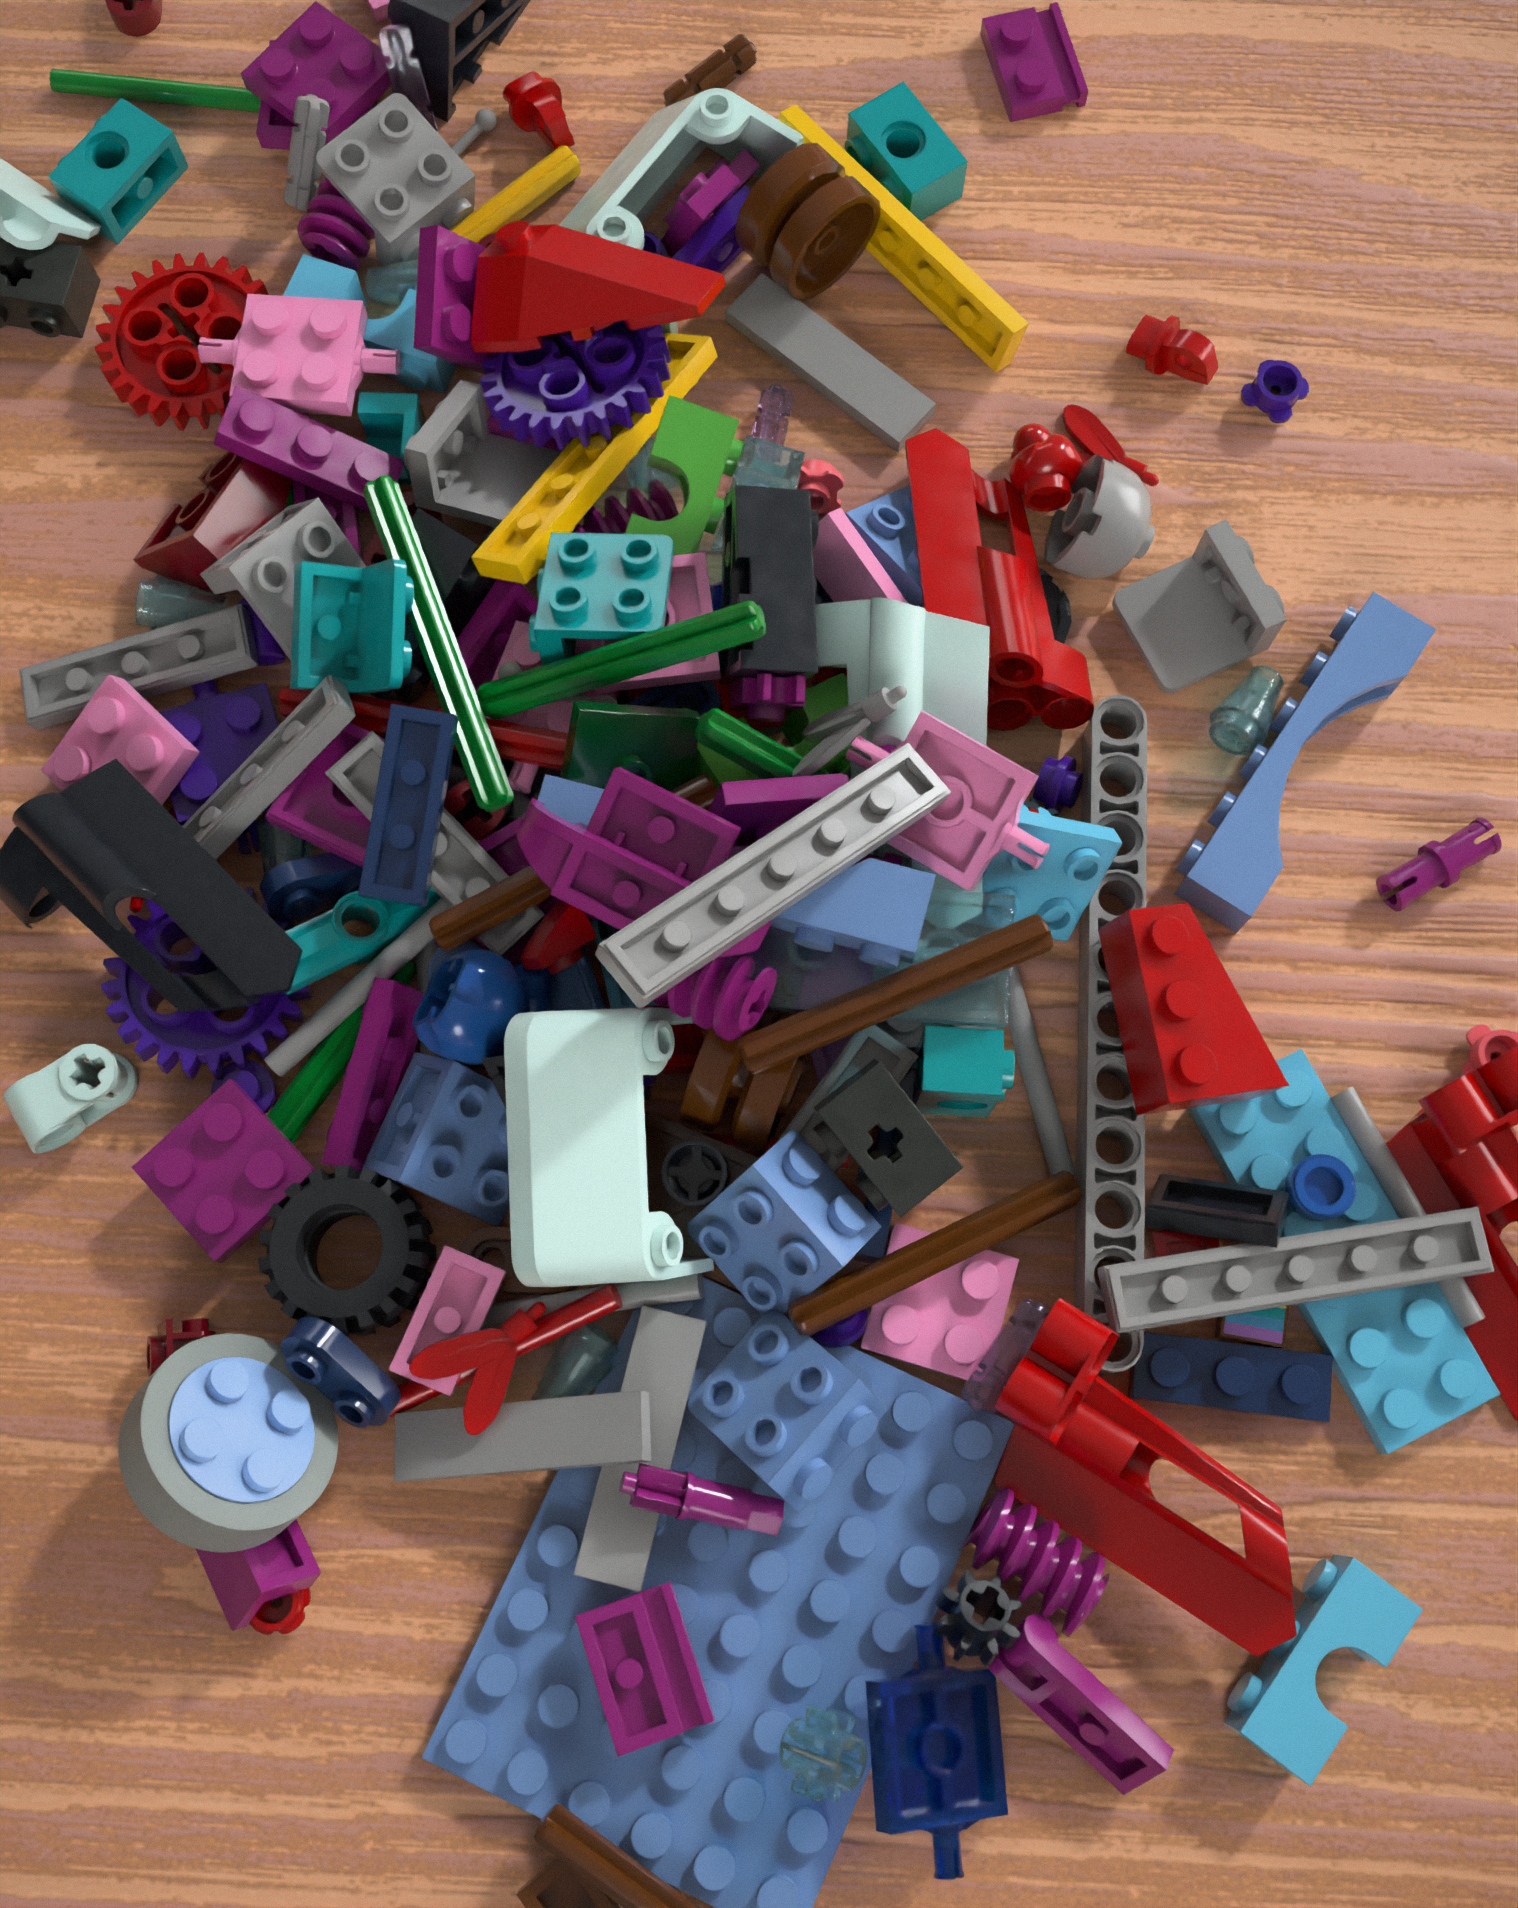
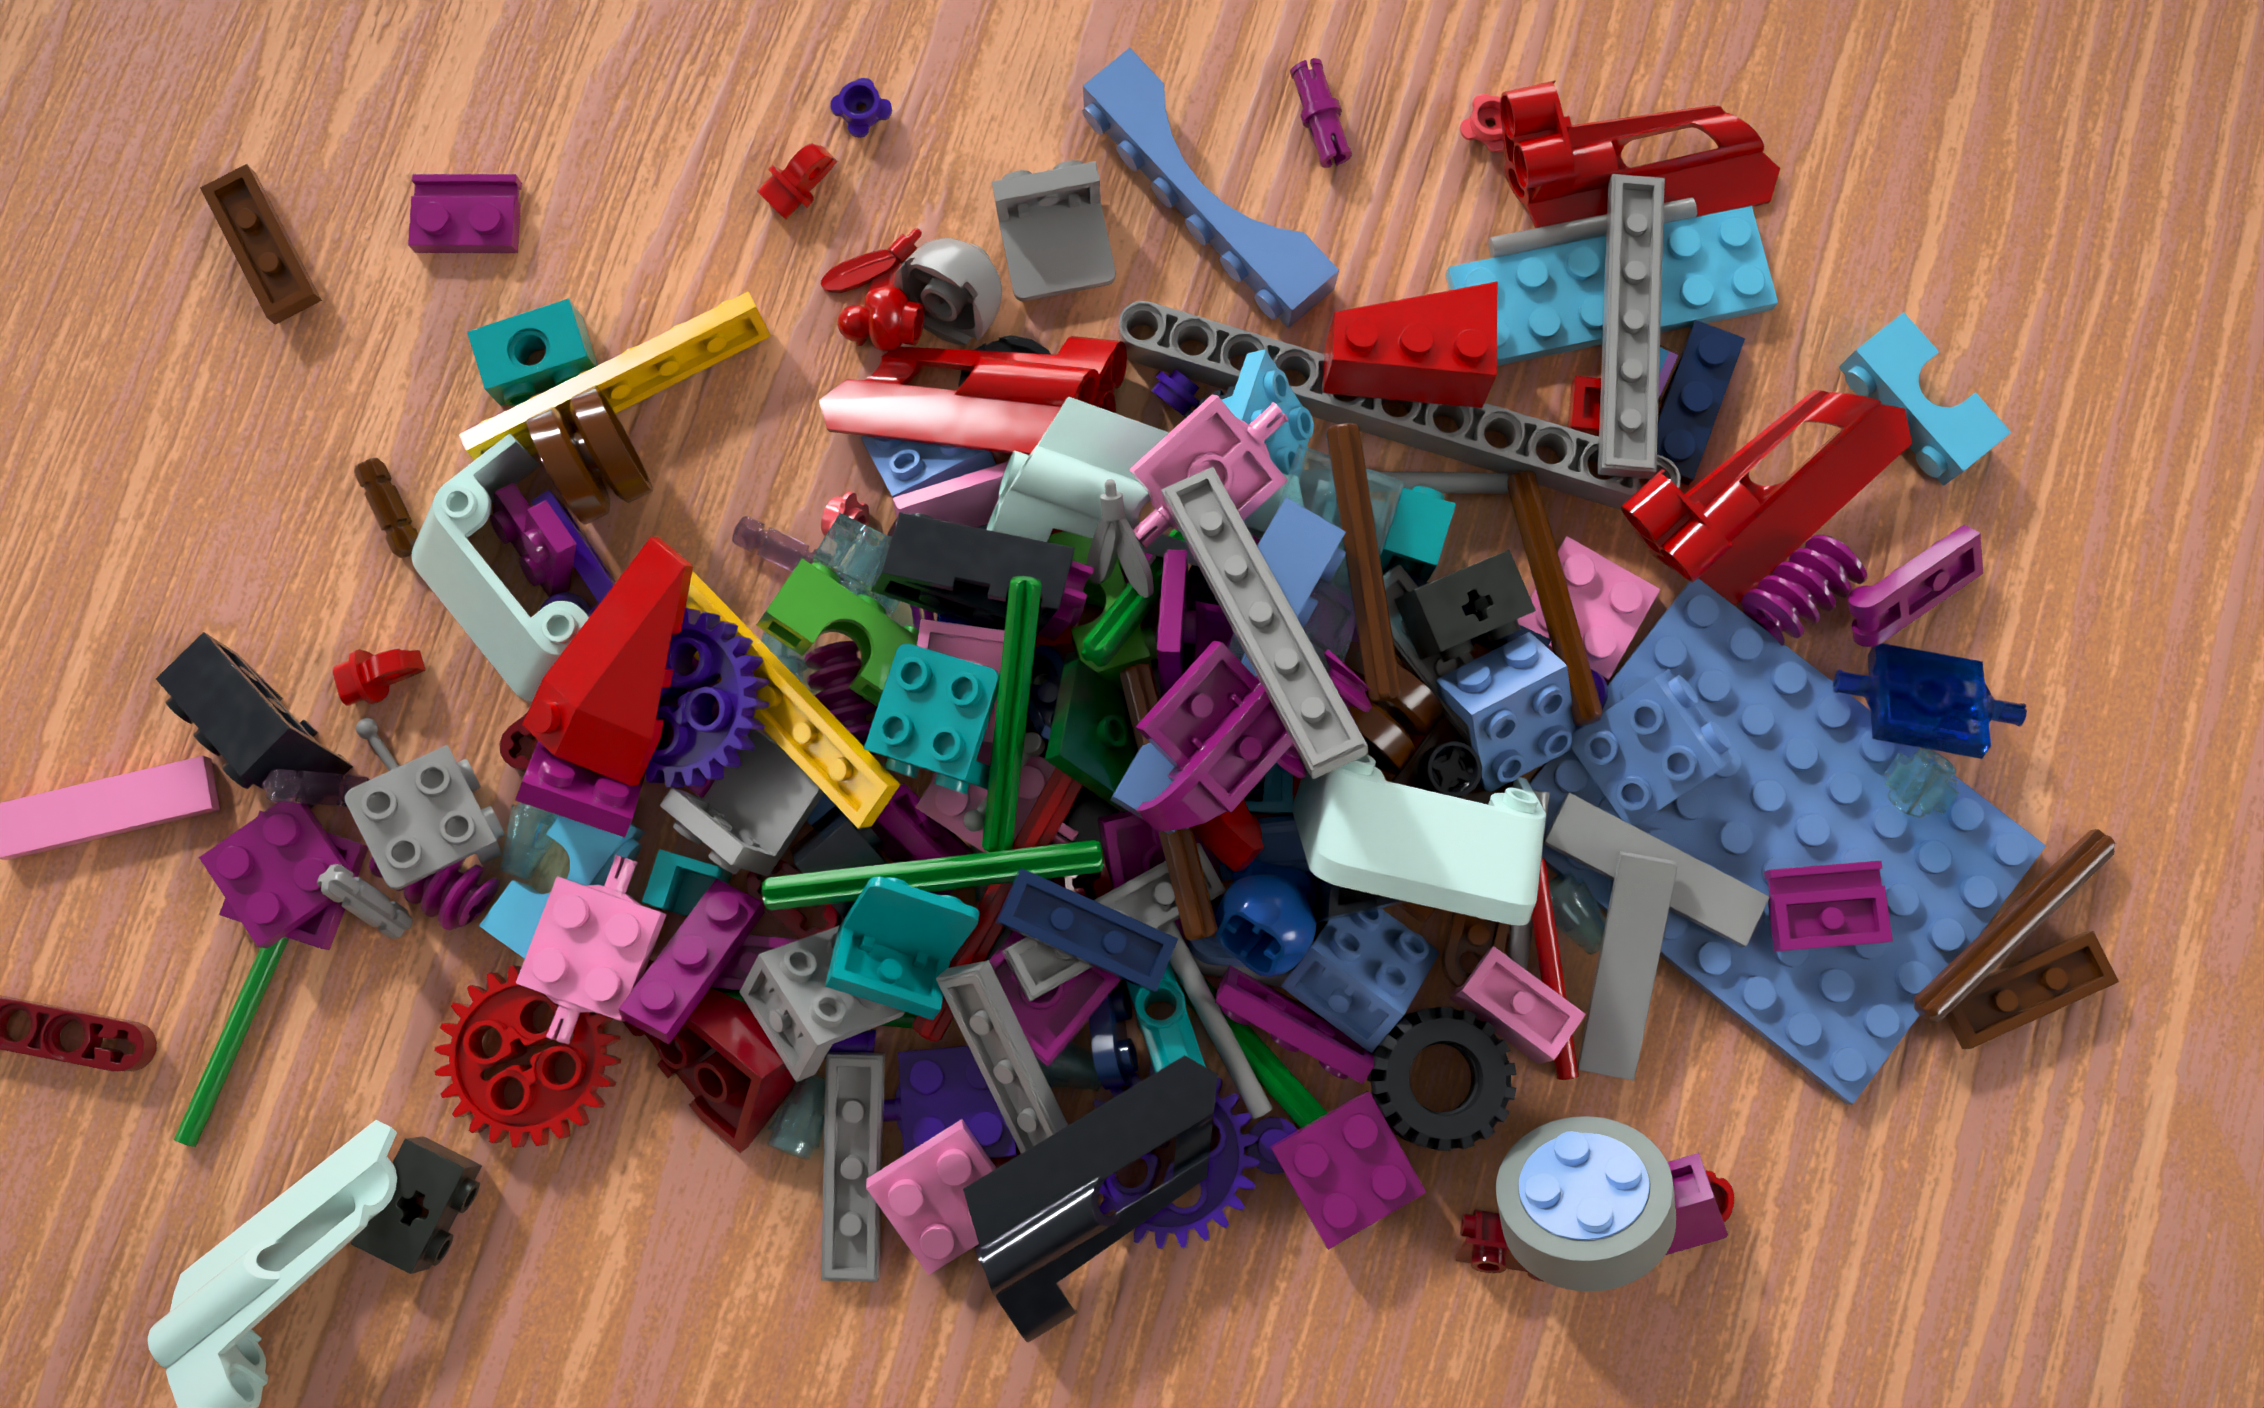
camera: 75 degrees left, 5 degrees up
(61, 1098) = (1246, 1304): light aqua piece -> none
(120, 169) = (347, 1098): teal brick -> none
(341, 1372) = (1545, 1101): dark blue plate -> none
(489, 1351) = (1559, 977): red piece -> none
(521, 195) = (469, 724): yellow axle -> none
(701, 1500) = (1712, 829): magenta piece -> none
(830, 362) = (721, 474): light grey tile -> none
(963, 1632) = (1844, 654): black gear -> none
(1004, 1356) = (1644, 565): clear purple axle -> none
(1217, 1210) = (1569, 369): black tile -> none
(1246, 712) = (1153, 221): clear light blue cone -> none
(1320, 1187) = (1569, 286): blue tile -> none

